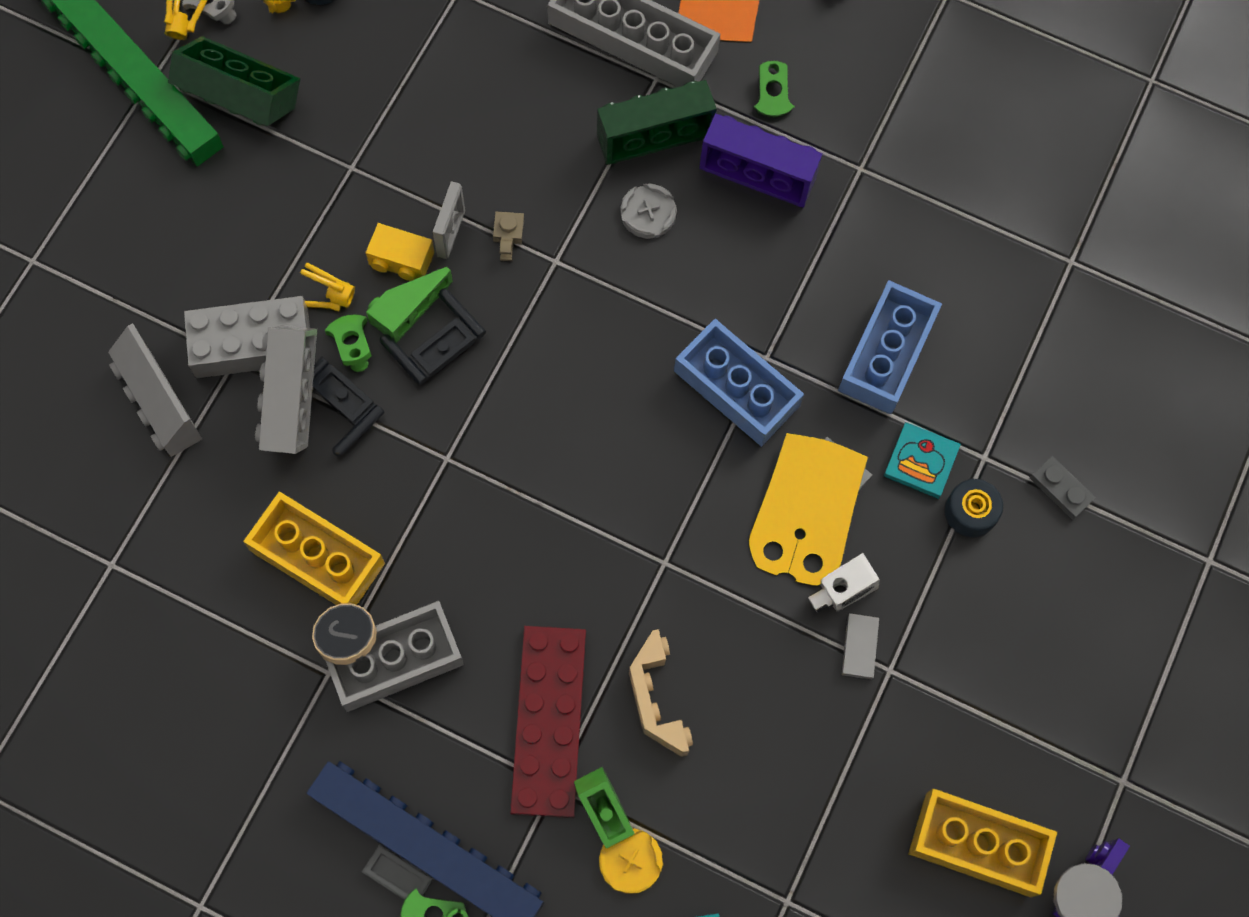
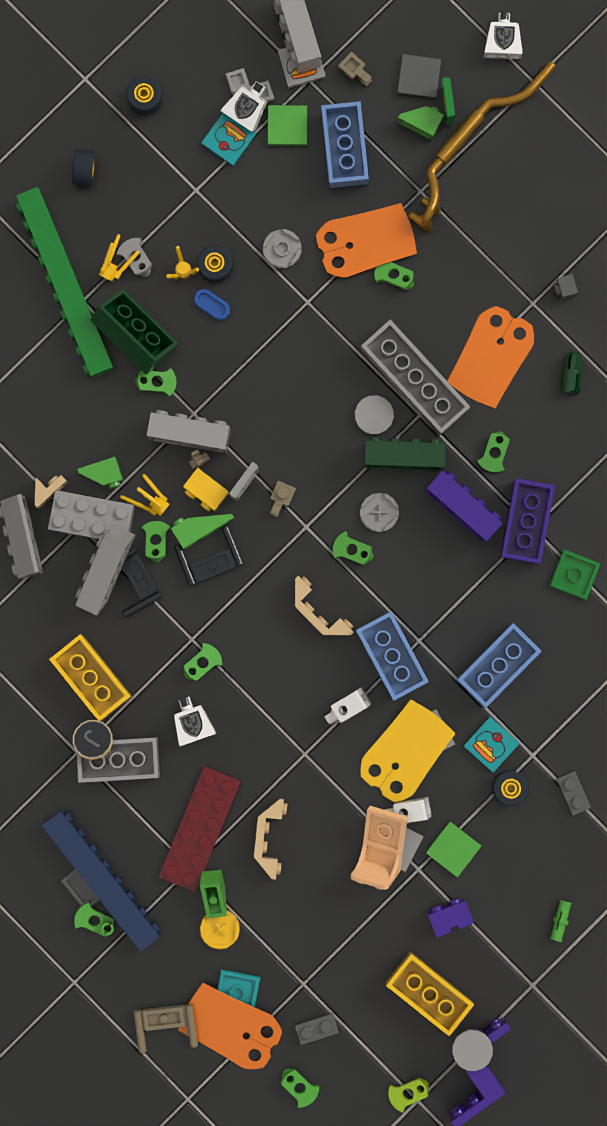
camera: 25 degrees right, 15 degrees up
(172, 327) = (44, 494): none -> tan slope
(246, 275) = (103, 472): none -> bright green slope
(300, 132) = (168, 382): none -> bright green piece
(331, 29) = (212, 304): none -> blue tile
(350, 182) = (188, 432): none -> light grey brick
(376, 213) = (198, 459): none -> dark tan plate
(475, 467) = (210, 654): none -> bright green piece
(487, 570) = (192, 723): none -> torso
(593, 90) = (374, 415): none -> light grey tile
(613, 266) = (343, 542): none -> bright green piece
(651, 373) = (302, 589): none -> tan slope
(709, 458) = (354, 703): none -> white torso
(827, 645) = (381, 848): none -> light nougat bracket
(852, 155) = (527, 521): none -> dark purple brick
(928, 622) = (453, 849): none -> bright green tile
(940, 206) = (574, 574): none -> green tile
(972, 712) = (450, 916): none -> dark purple brick
(1120, 650) = (560, 920): none -> bright green pin

